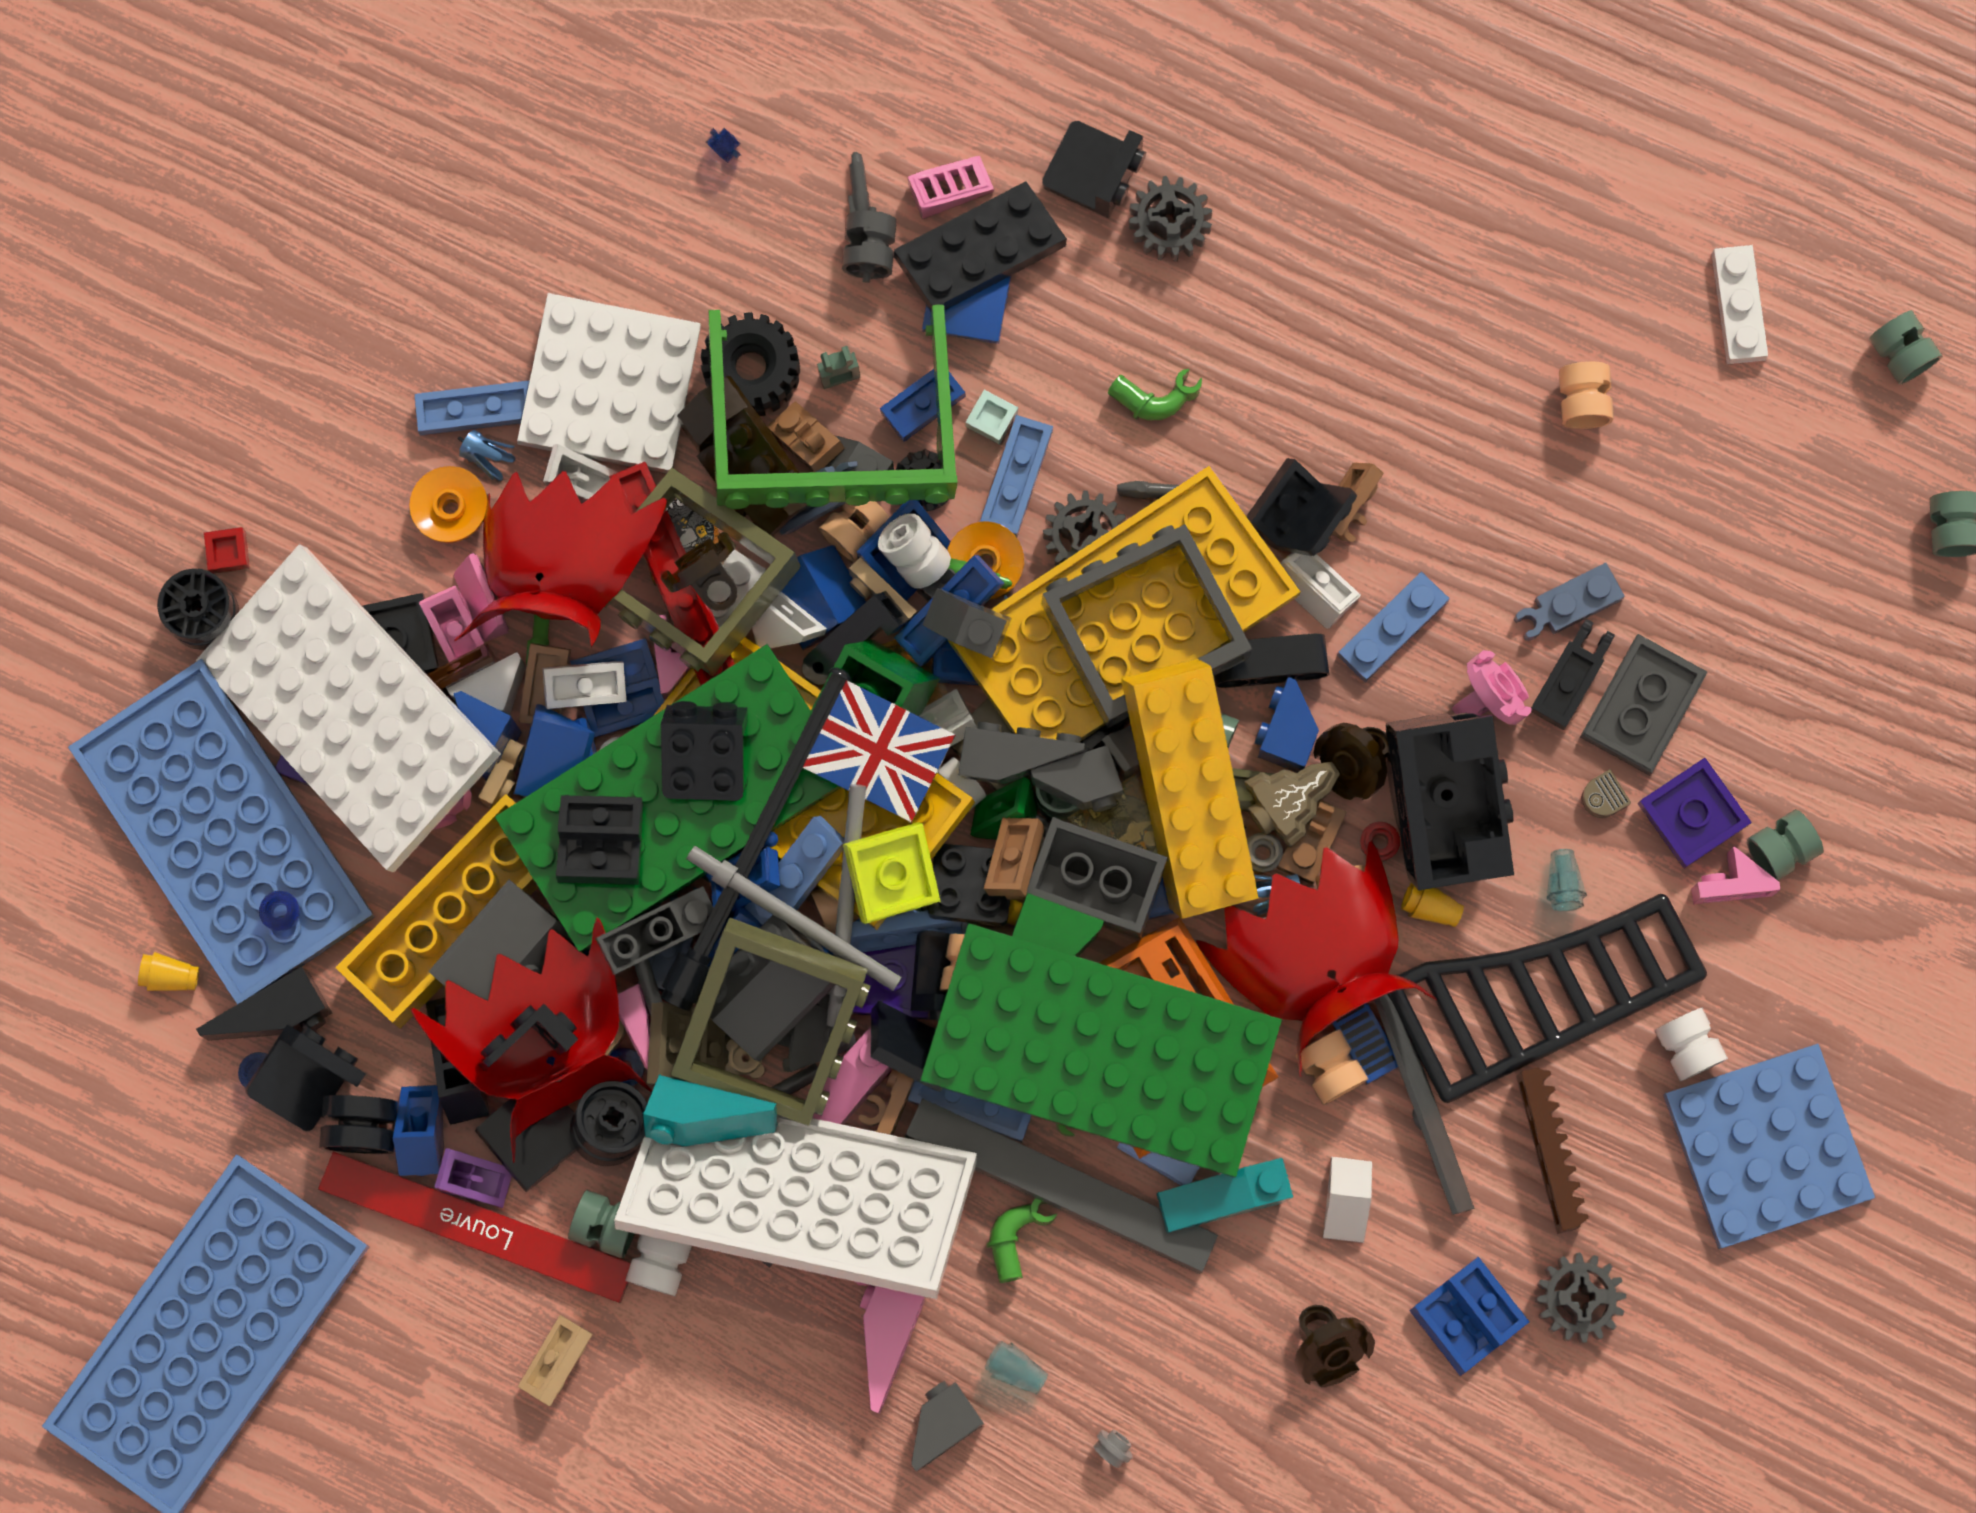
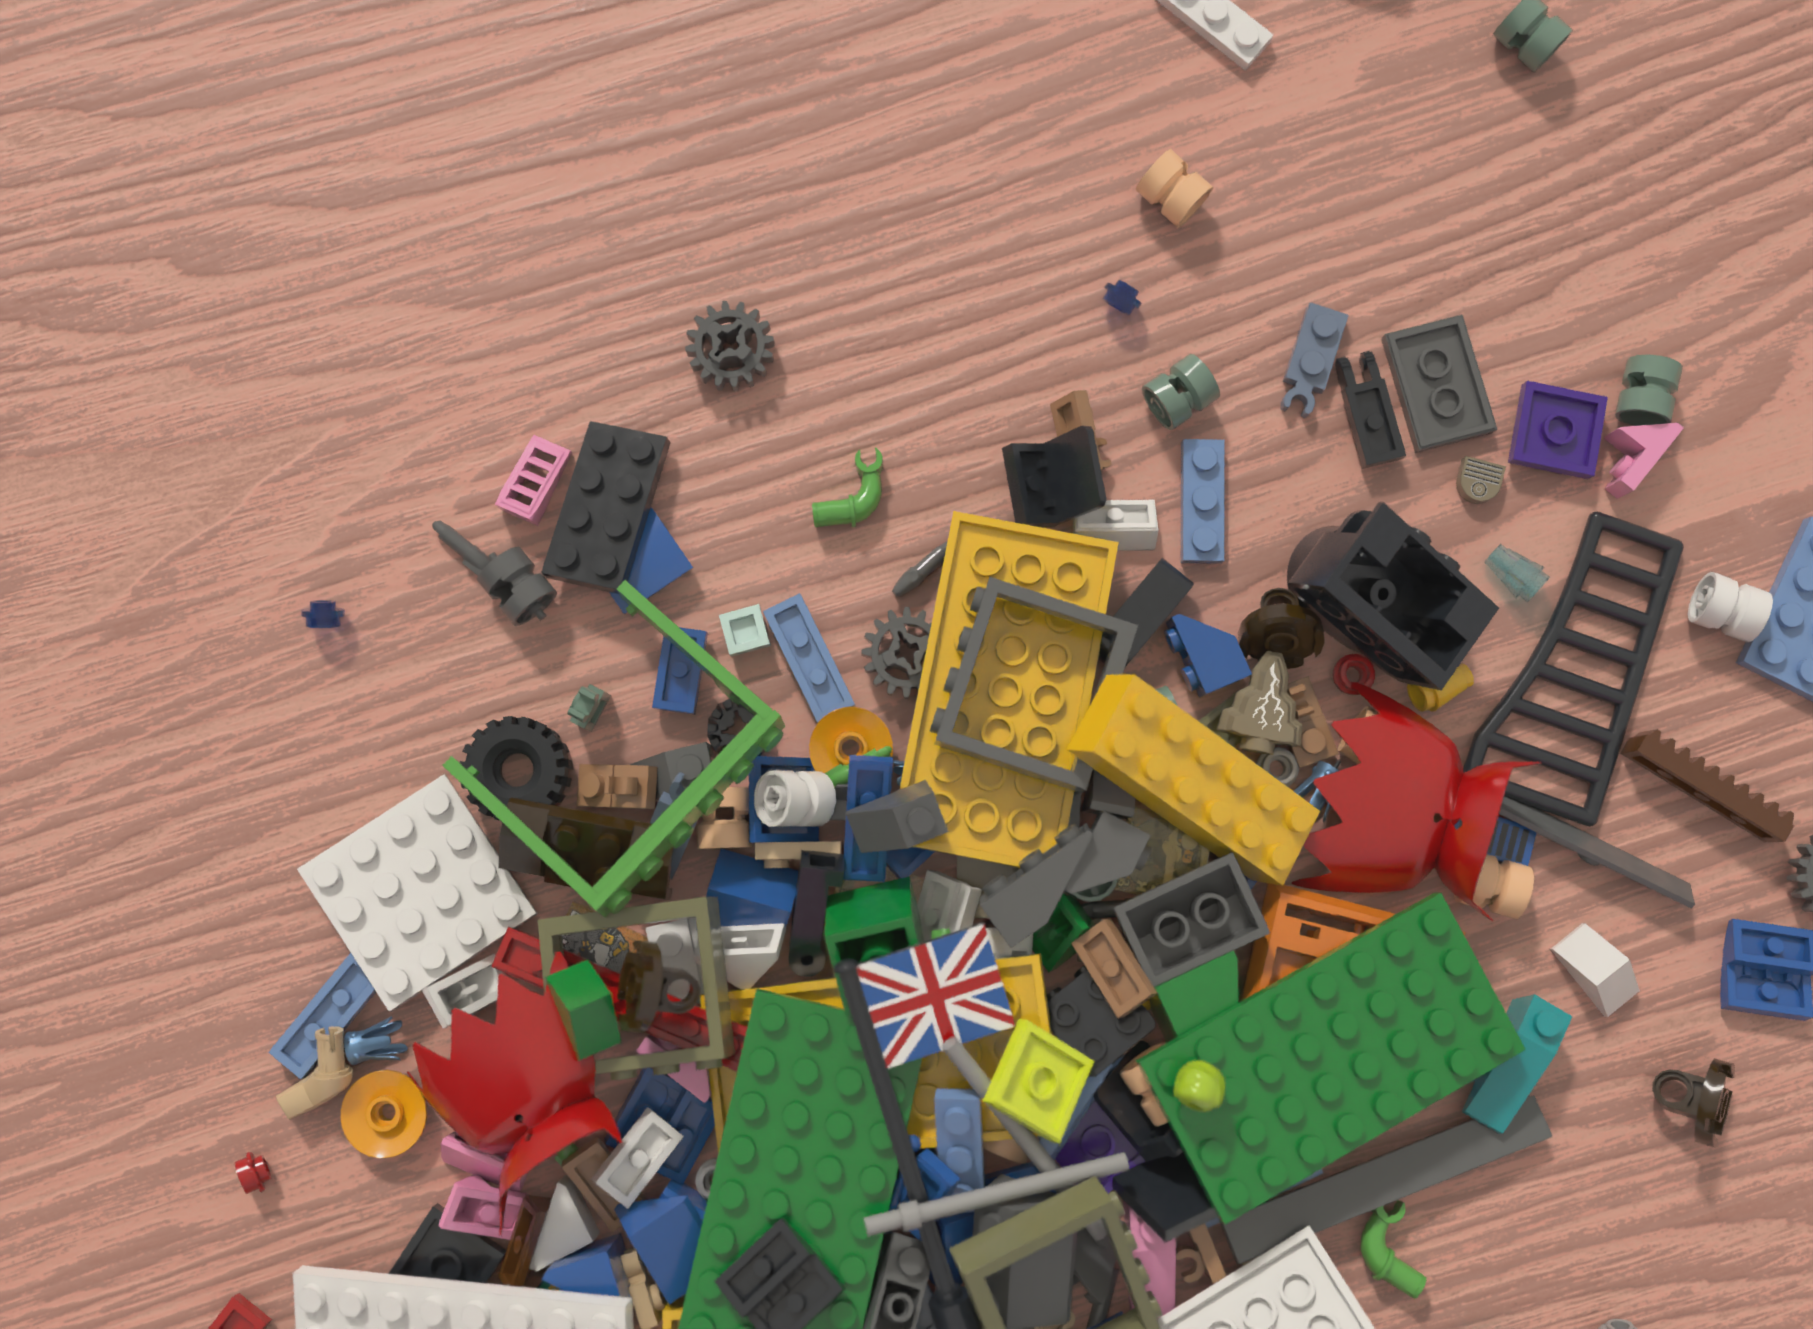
camera: 50 degrees left, 5 degrees up
(329, 462) = (252, 1172): none -> red plate
(432, 447) = (325, 1082): none -> tan arm
(647, 548) = (585, 1009): none -> green slope
(703, 751) = (792, 1132): black bracket -> none
(991, 967) = (1200, 1086): none -> lime piece
(1094, 167) = (632, 361): black bracket -> none
(1450, 536) = (1185, 389): none -> sand green wheel
(1475, 435) = (1122, 297): none -> clear blue plate
(1494, 690) = (1331, 477): bright pink tile -> none

